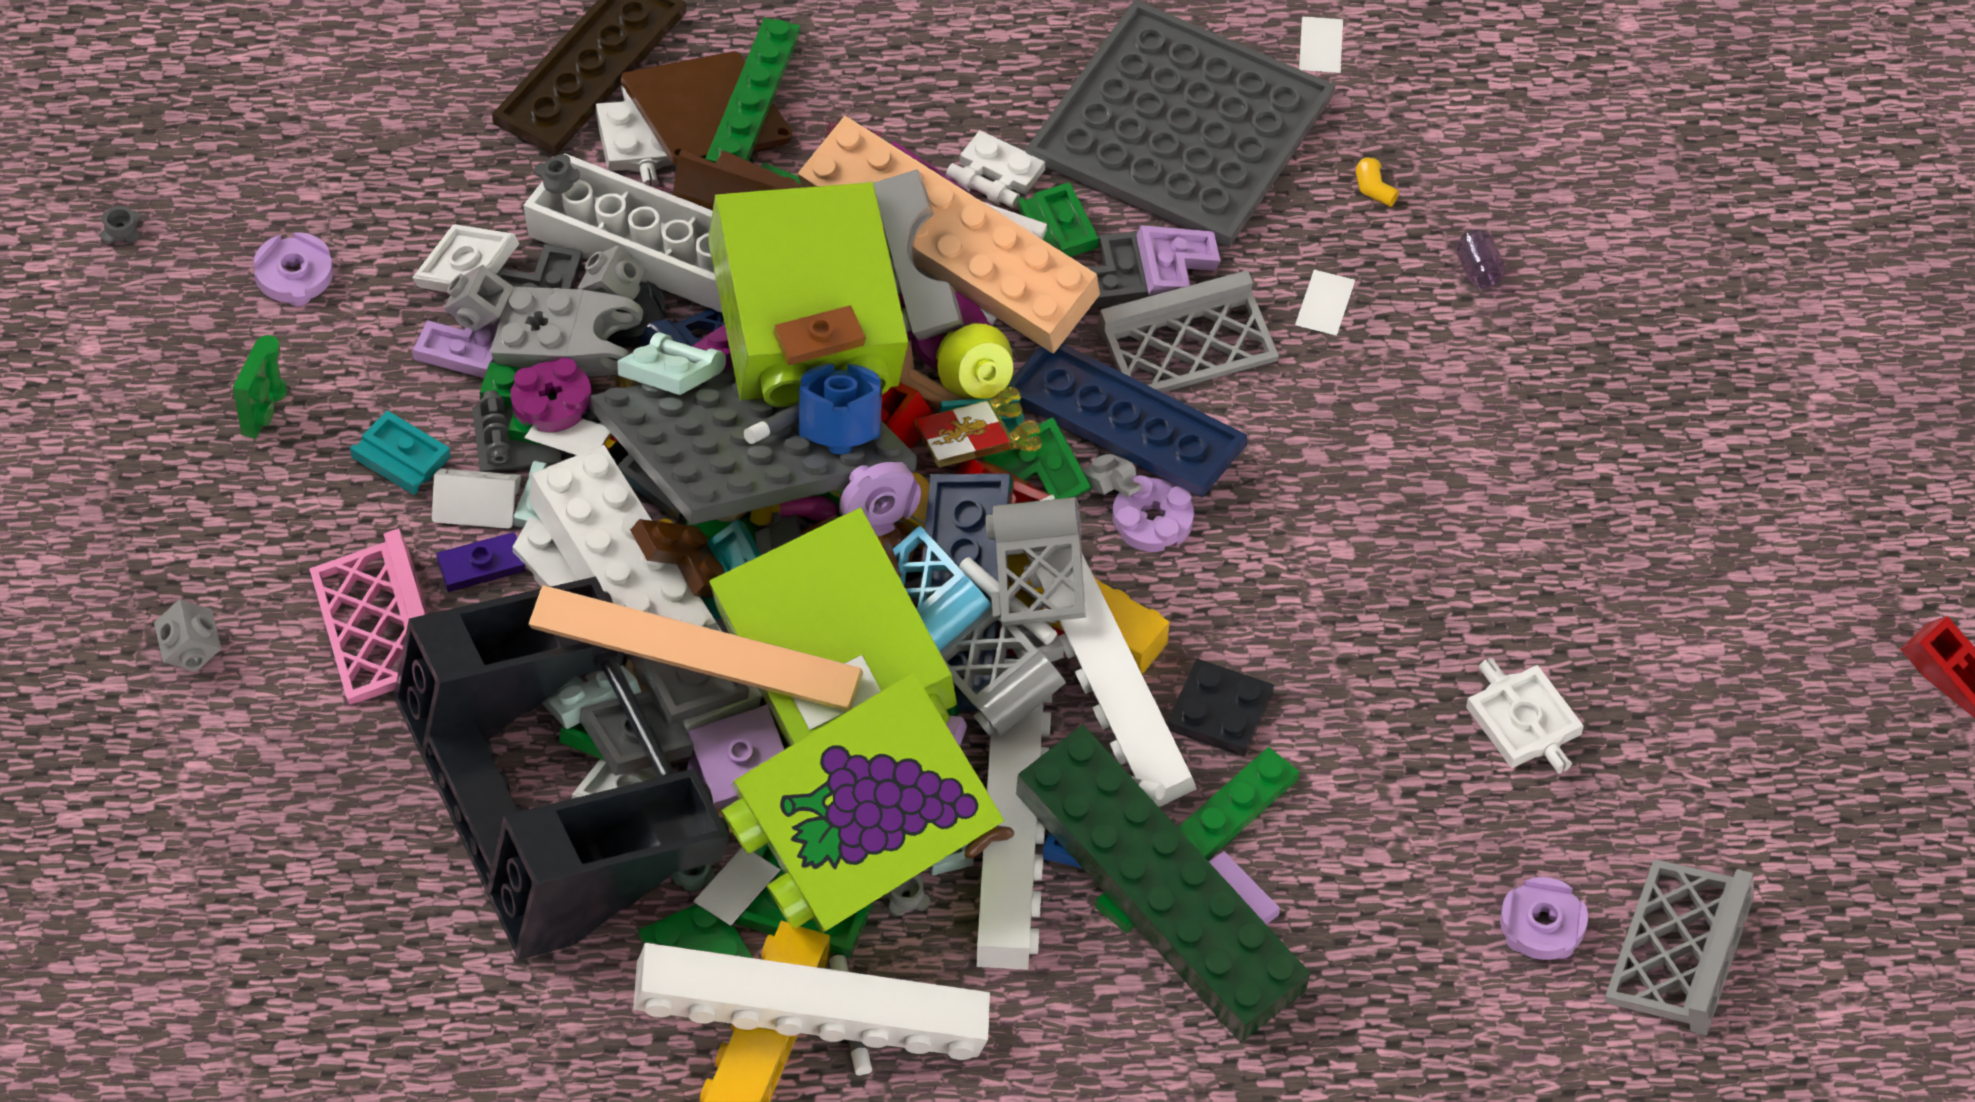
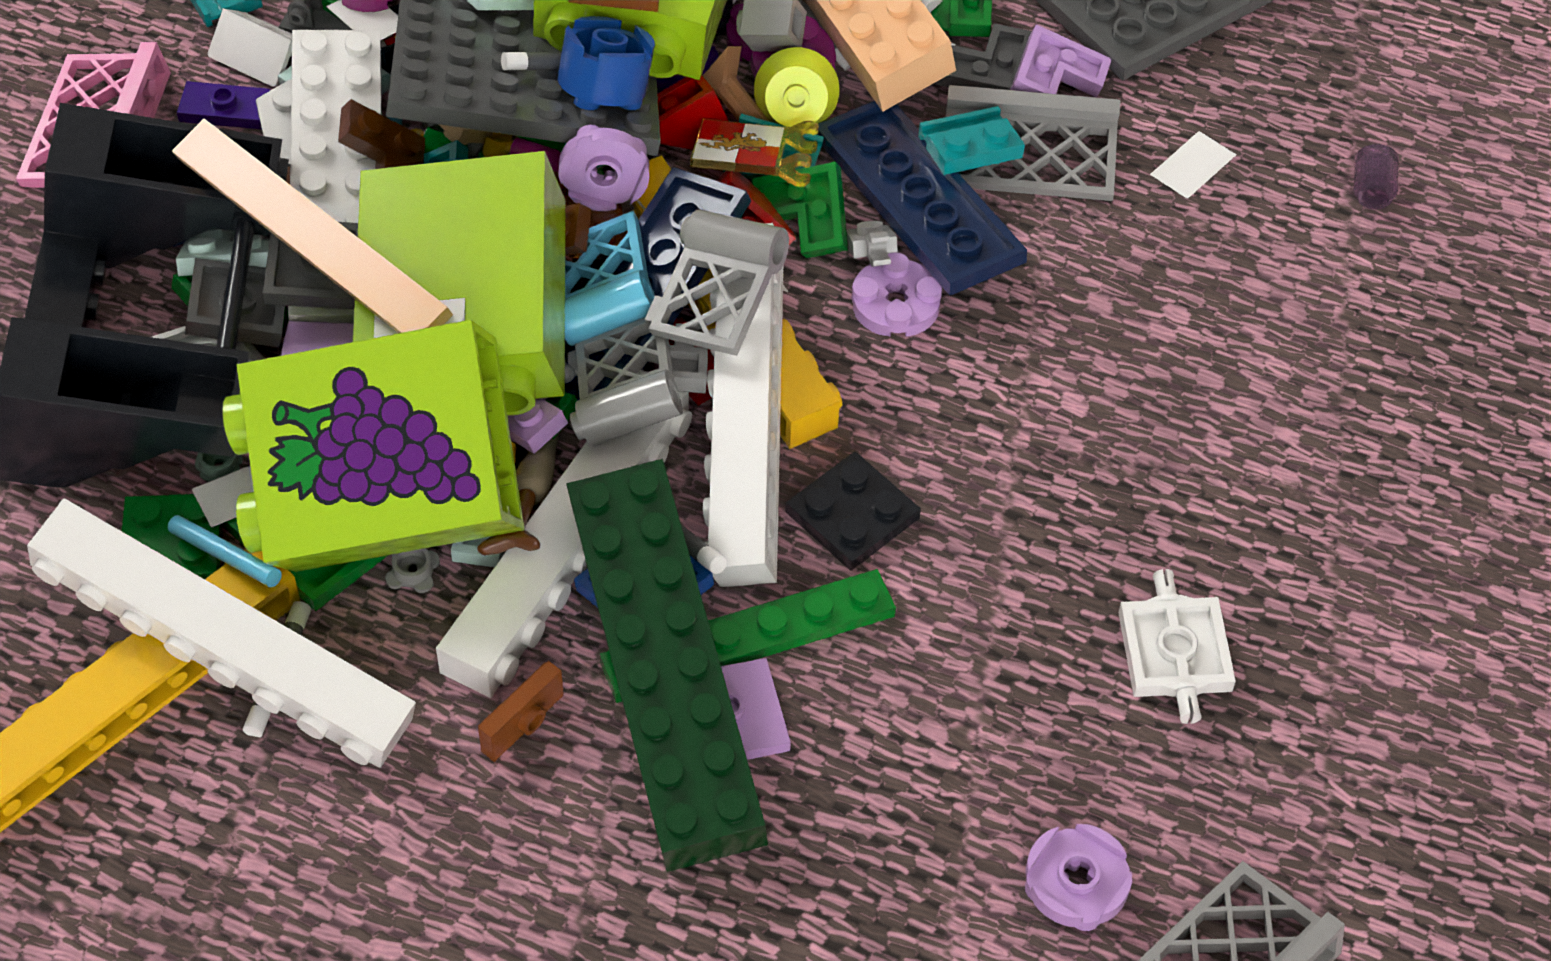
camera: 25 degrees right, 0 degrees up
(764, 938) = (224, 551): none -> medium azure bar
(989, 584) = (660, 278): white bar -> none
(1067, 968) = (521, 711): none -> dark orange plate
(1145, 353) = (971, 140): none -> teal plate
(1371, 183) = (1300, 71): yellow arm -> none

